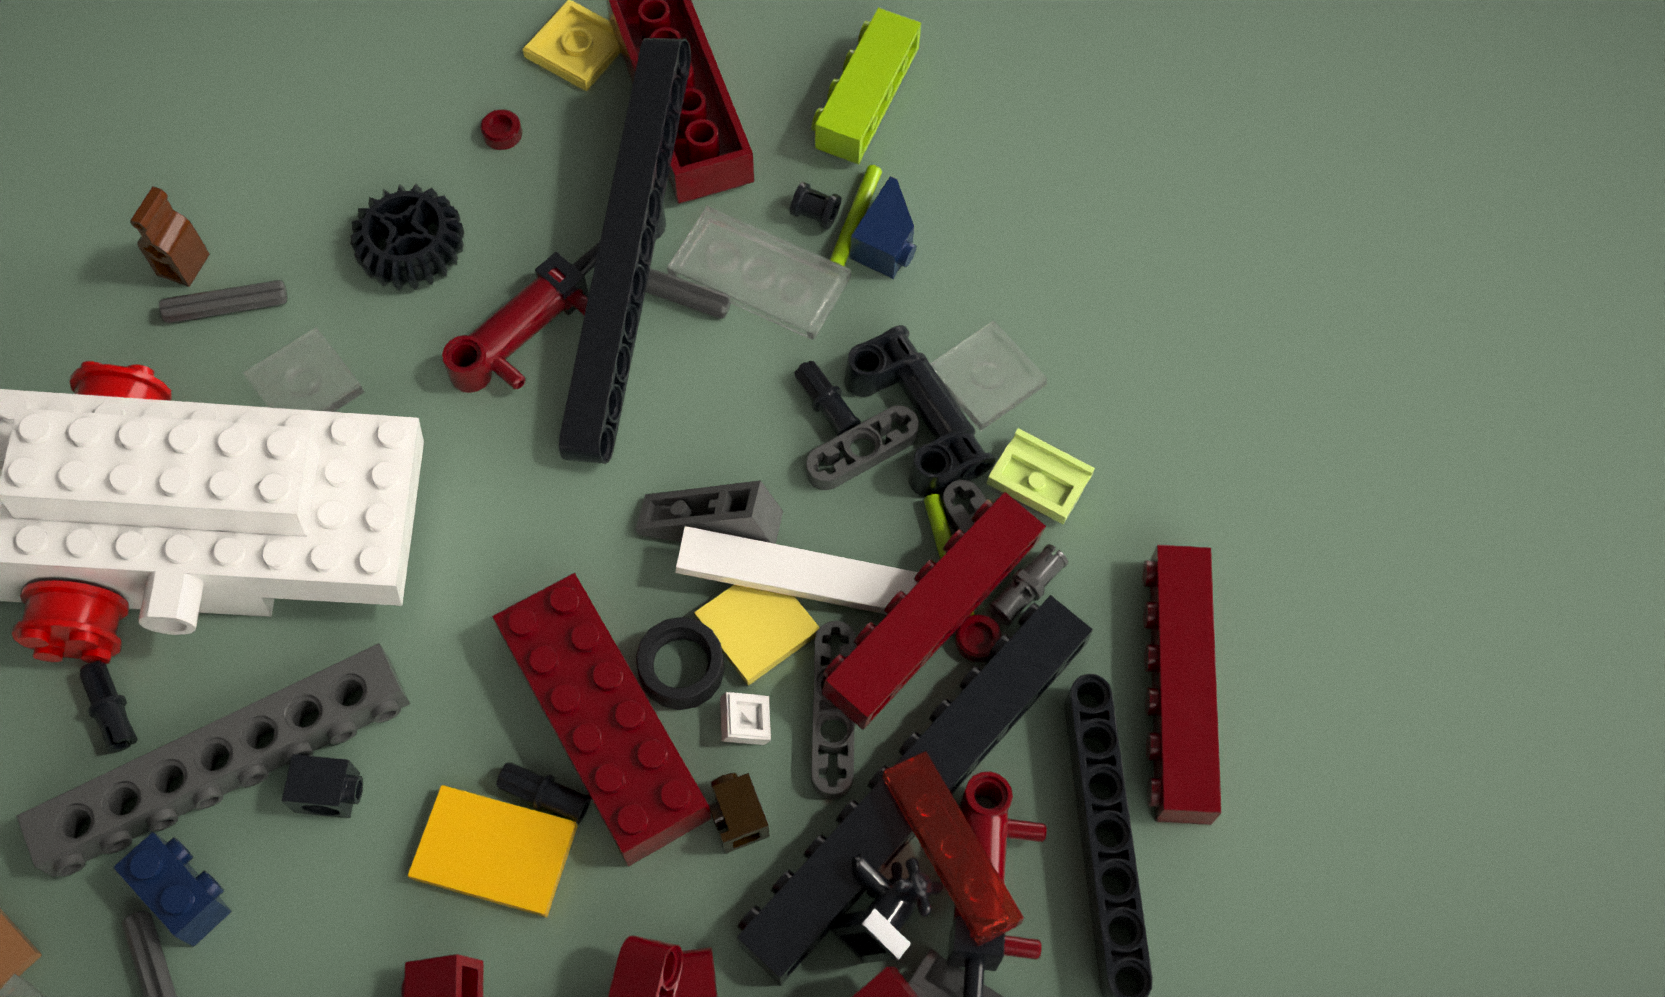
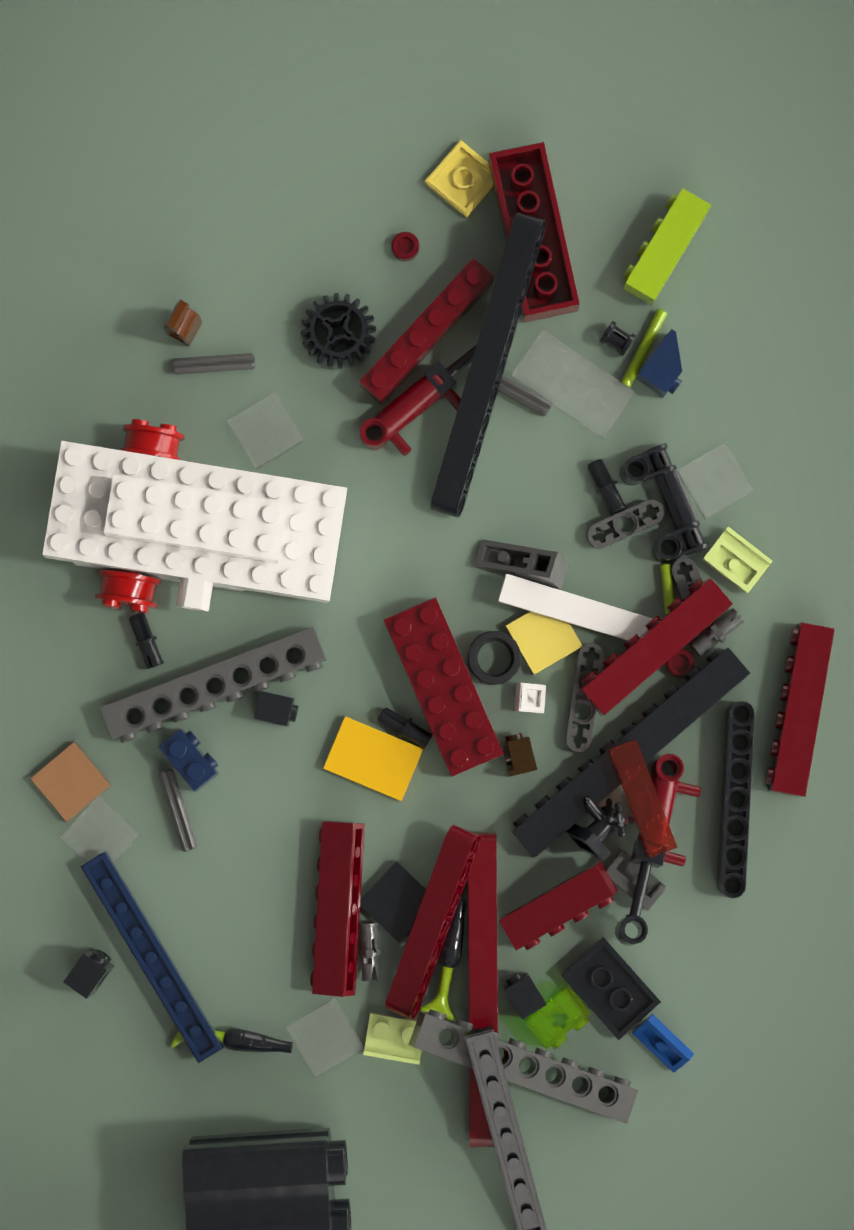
camera: 10 degrees right, 20 degrees up
(532, 226) = (427, 331): none -> dark red brick

